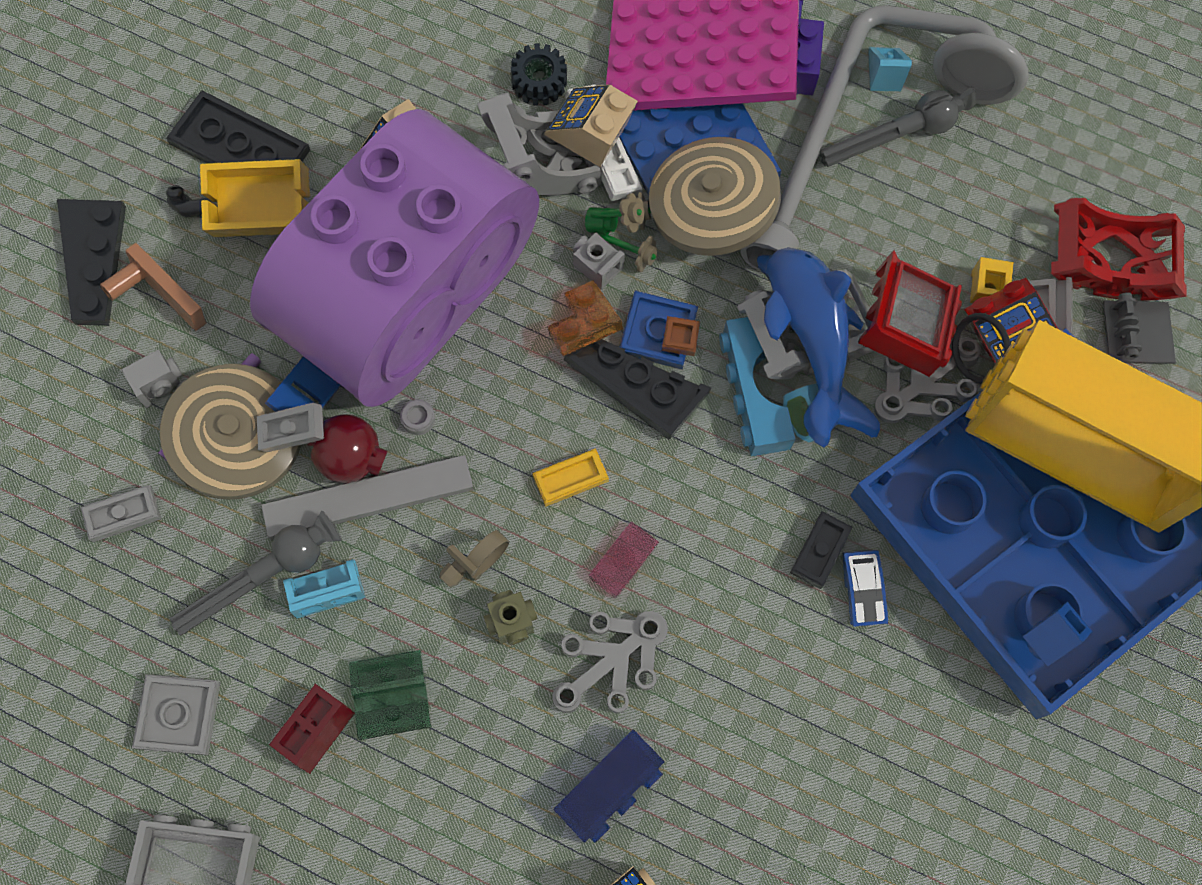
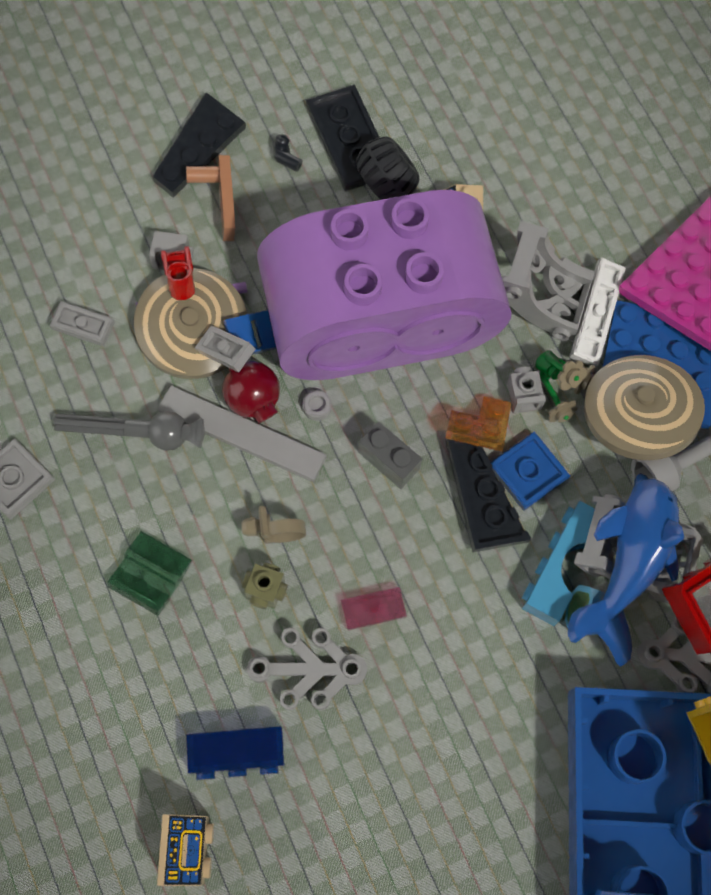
camera: 40 degrees right, 0 degrees up
(183, 390) = (179, 273): none -> red piece
(252, 196) = (326, 178): yellow piece -> none
(312, 729) = (83, 555): dark red hinge -> none
(315, 145) = (387, 168): none -> black wheel
(324, 589) = (164, 471): medium azure hinge -> none
(524, 410) = (389, 455): none -> dark grey brick
(538, 60) = (593, 220): black bush -> none
(570, 477) = (384, 524): yellow tile -> none
(592, 121) = (598, 291): tan slope -> none
(680, 336) = (539, 487): dark orange tile -> none
(821, 550) = (515, 713): black plate -> none
(865, 588) = (524, 765): slope -> none

